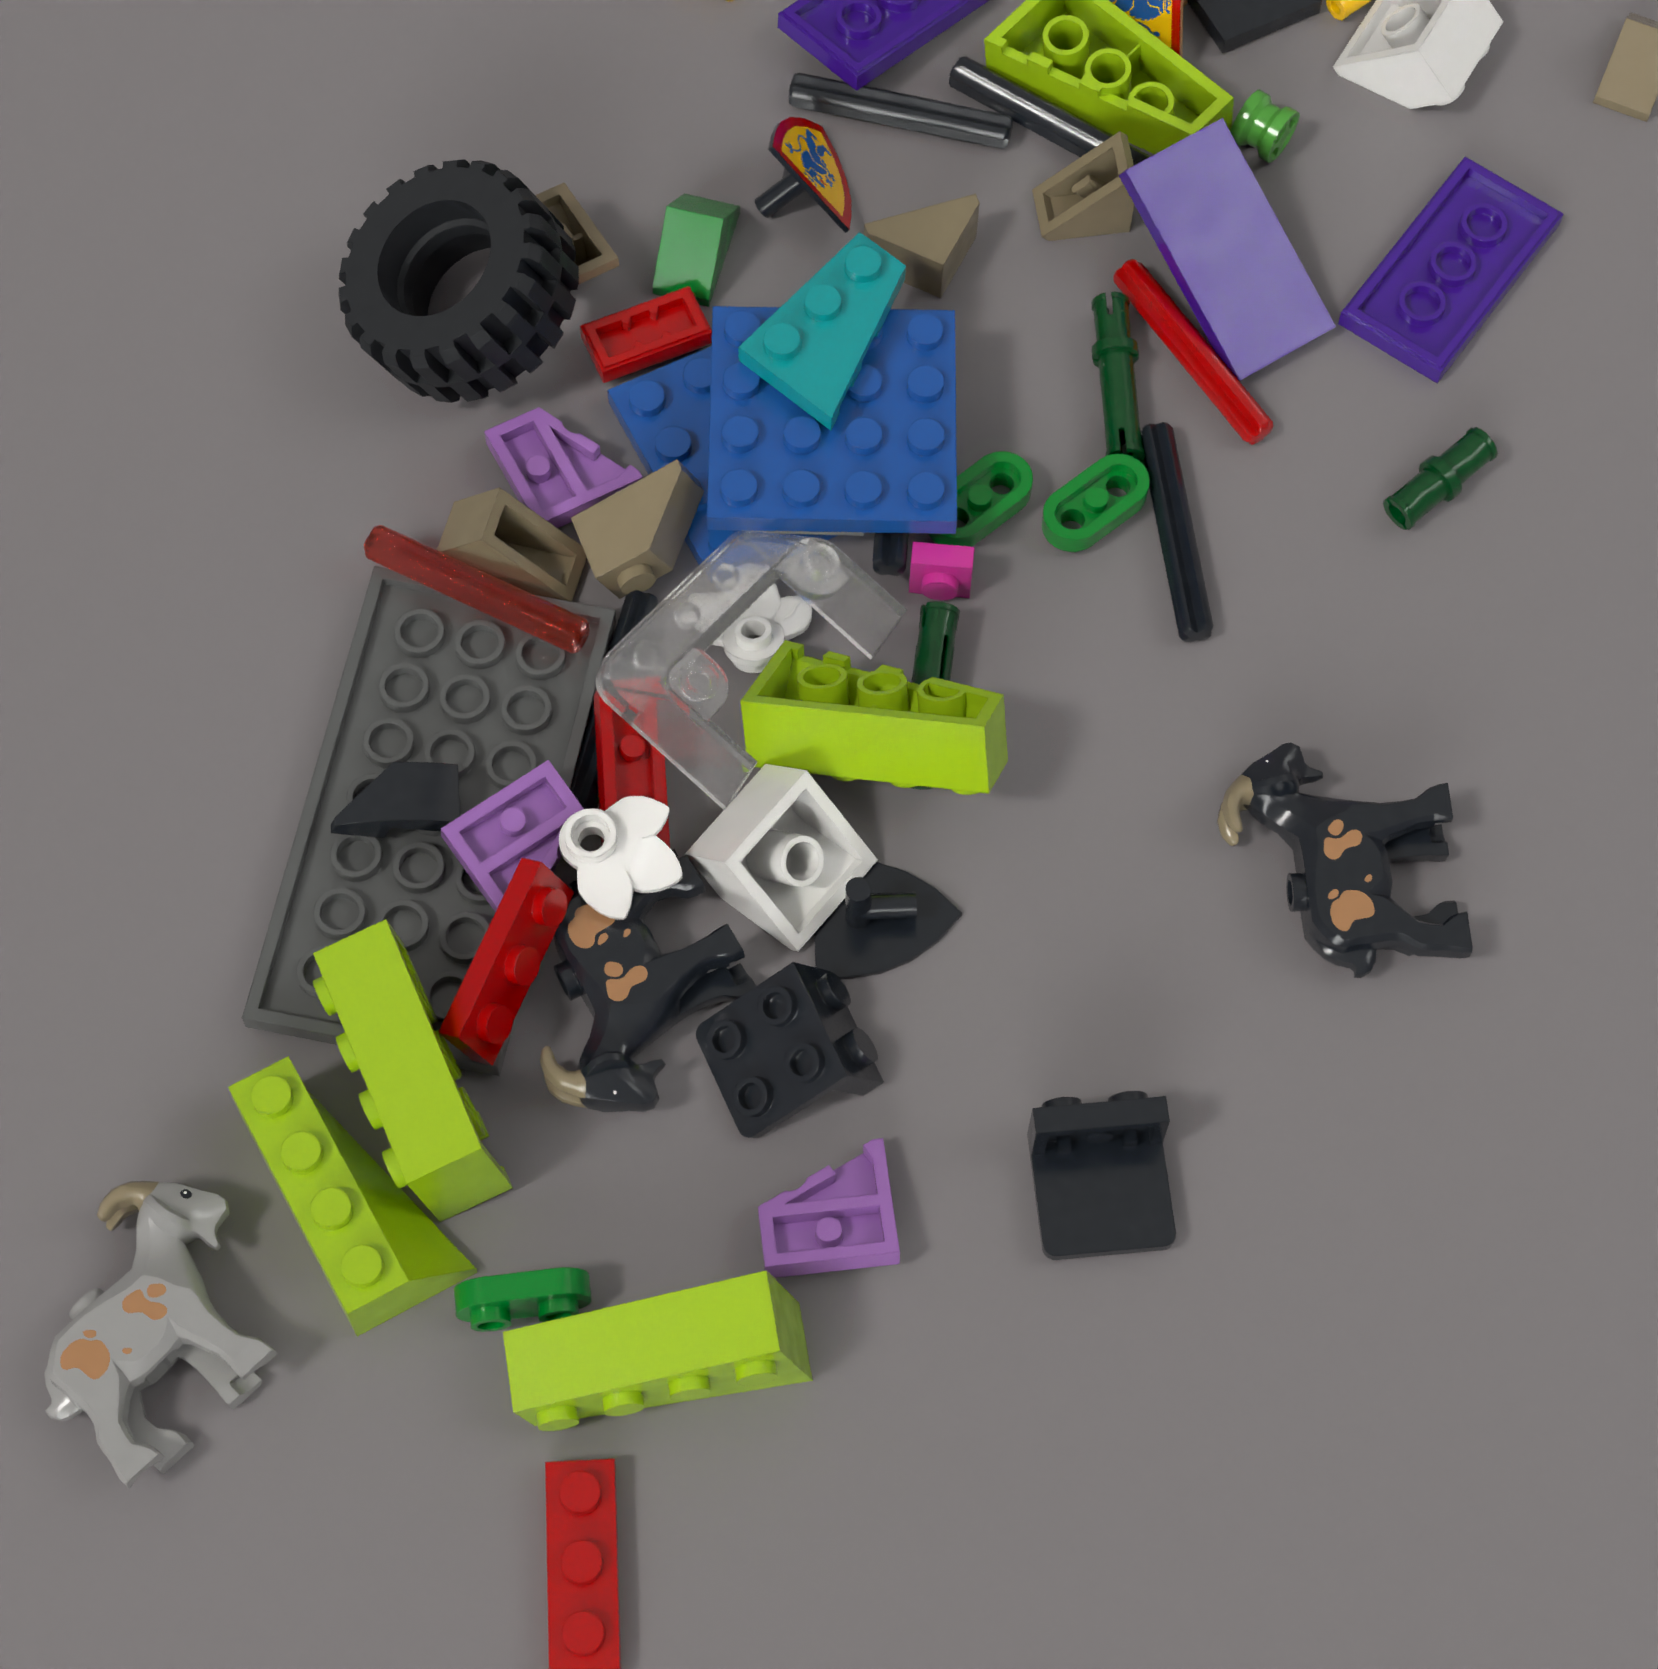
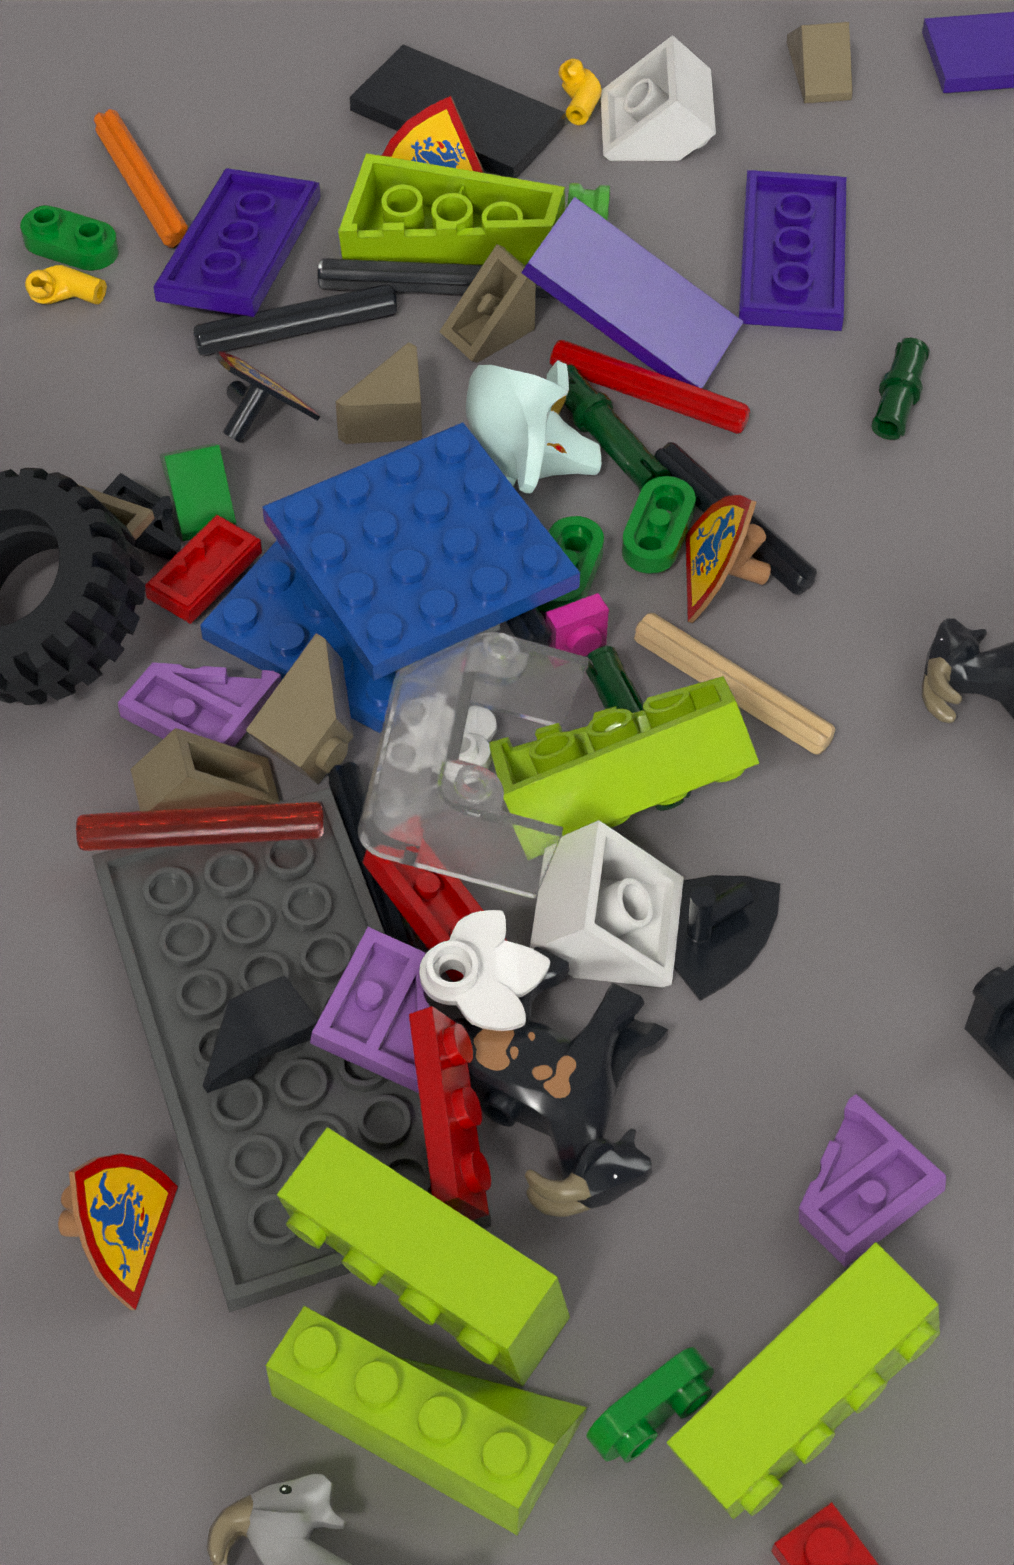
camera: 30 degrees left, 10 degrees down
(198, 901) = (119, 1214): none -> shield
(634, 246) = (160, 535): none -> black slope
(787, 1048) = (723, 1067): black bracket -> none
(823, 331) = (376, 477): teal wing -> none
(1021, 347) = (521, 426): none -> light aqua piece
(1055, 700) = (748, 690): none -> tan axle
(1122, 564) = (721, 546): none -> shield

